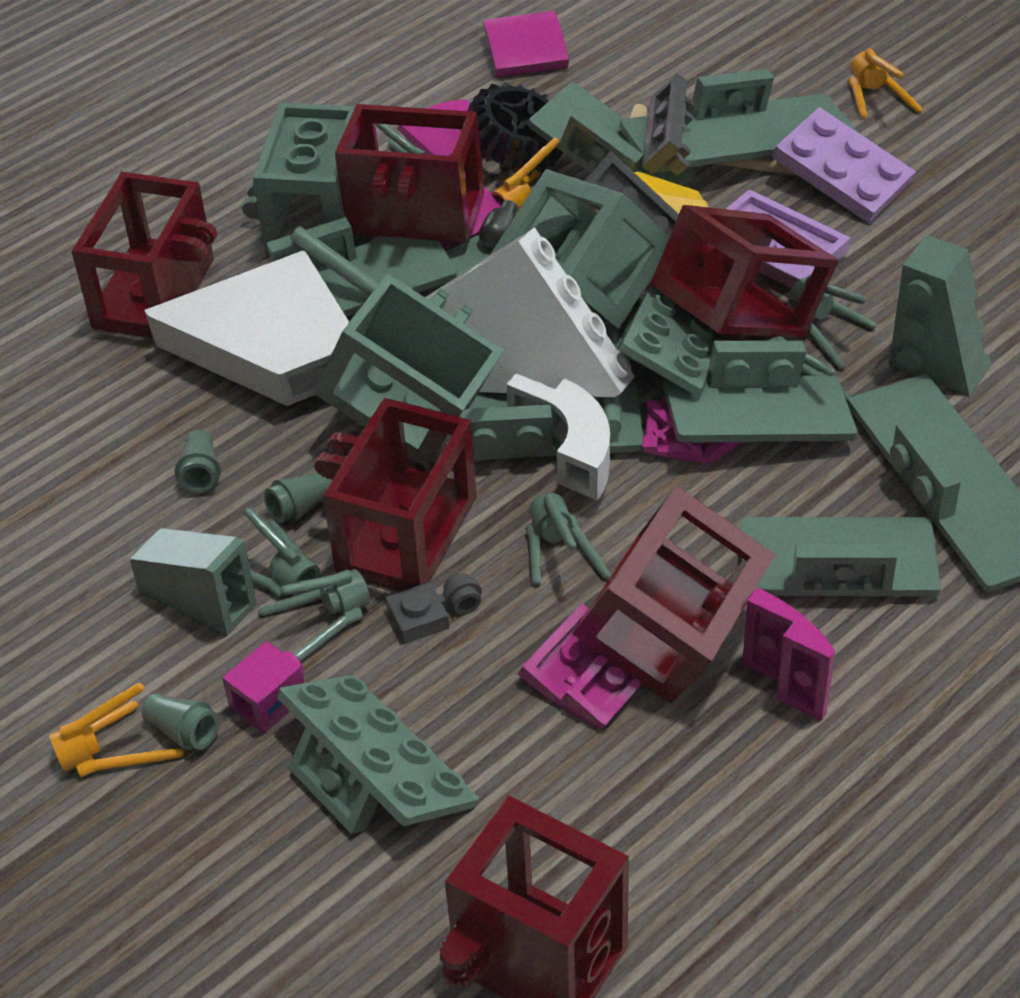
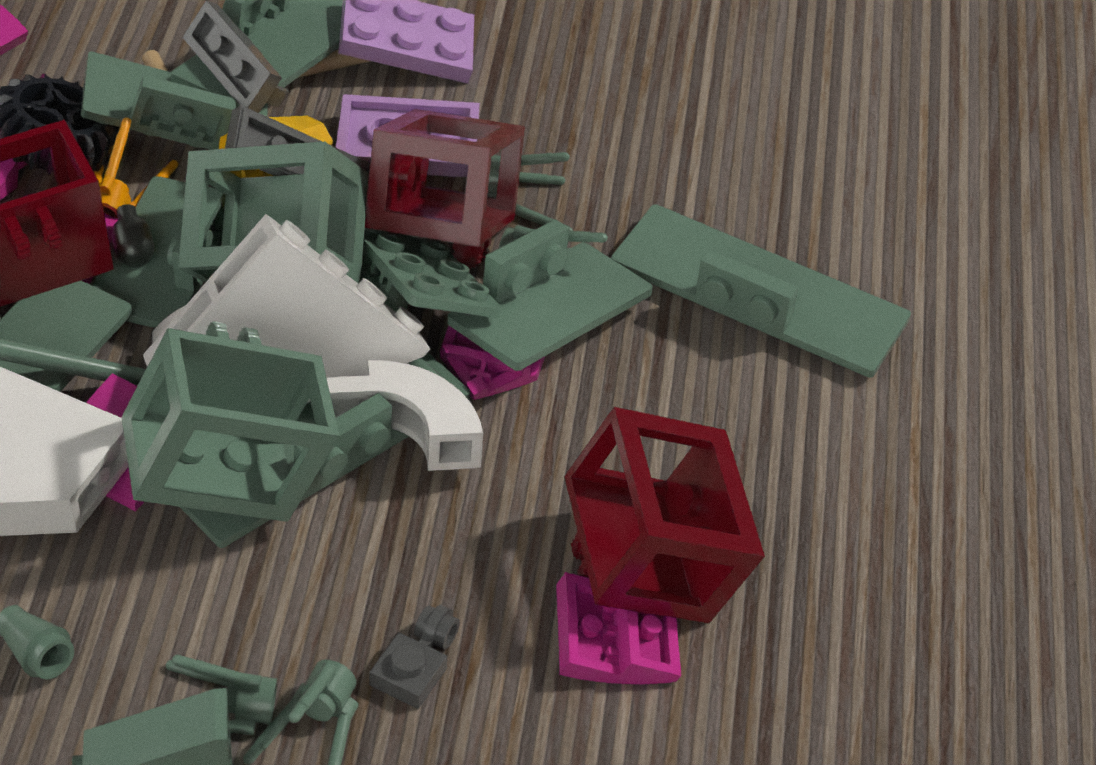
camera: 45 degrees left, 0 degrees up
(294, 496) = (180, 620): sand green cone -> none
(389, 516) = (313, 573): dark red piece -> none
(555, 524) = (462, 509): sand green plant -> none
(789, 651) = (801, 514): dark pink slope -> none
(847, 555) = (747, 395): sand green bracket -> none
(938, 318) = (641, 146): sand green wedge -> none

